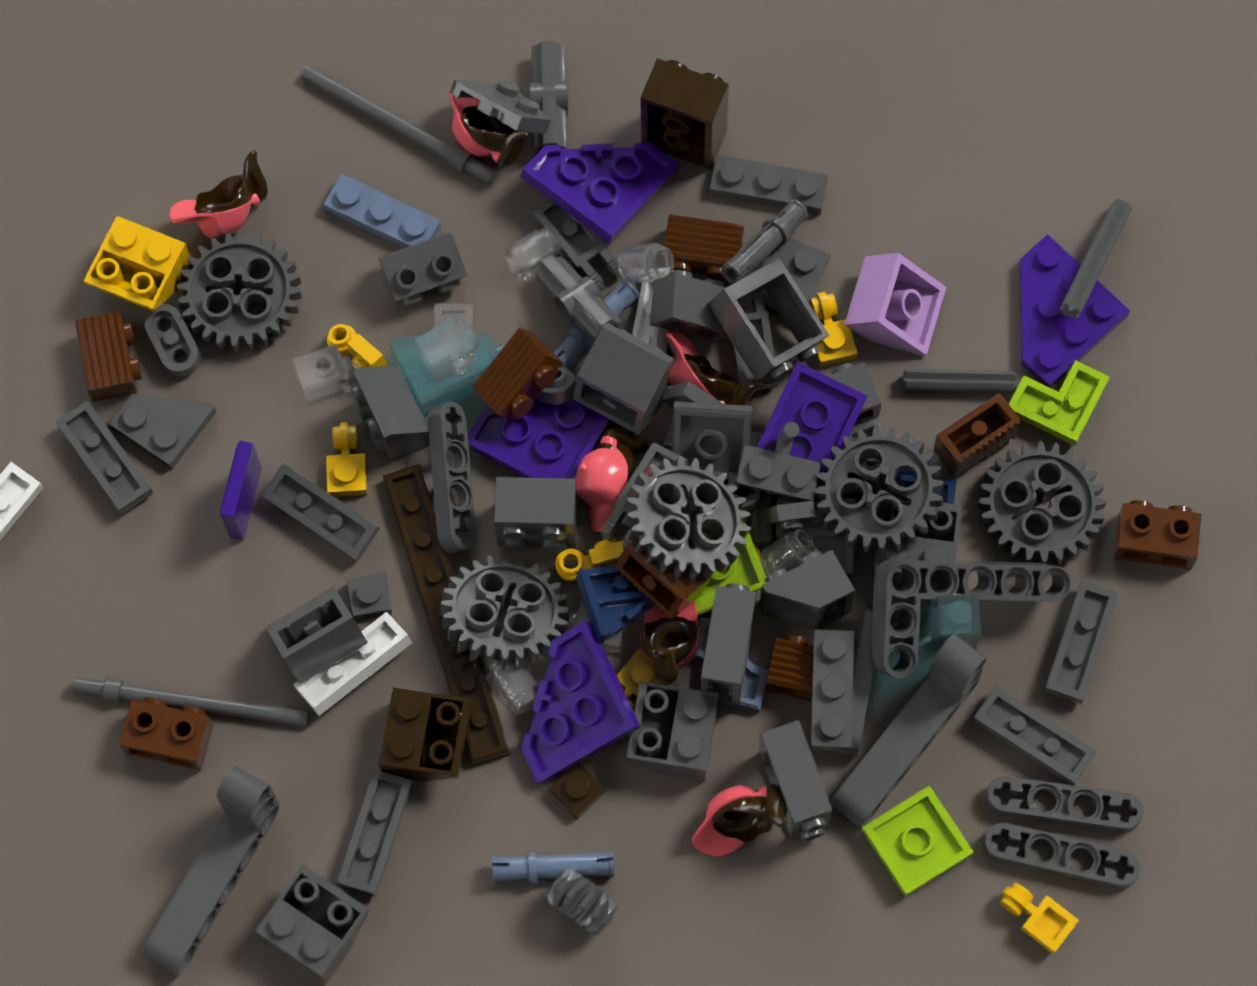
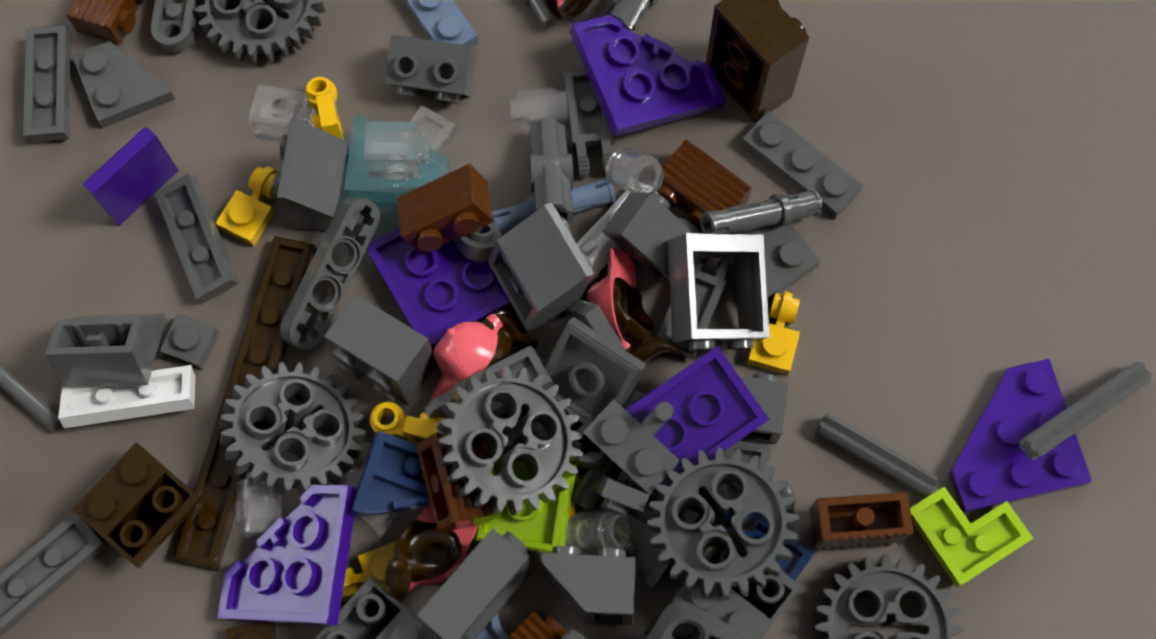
camera: 30 degrees right, 0 degrees up
(895, 304) = (856, 343): lavender slope -> none

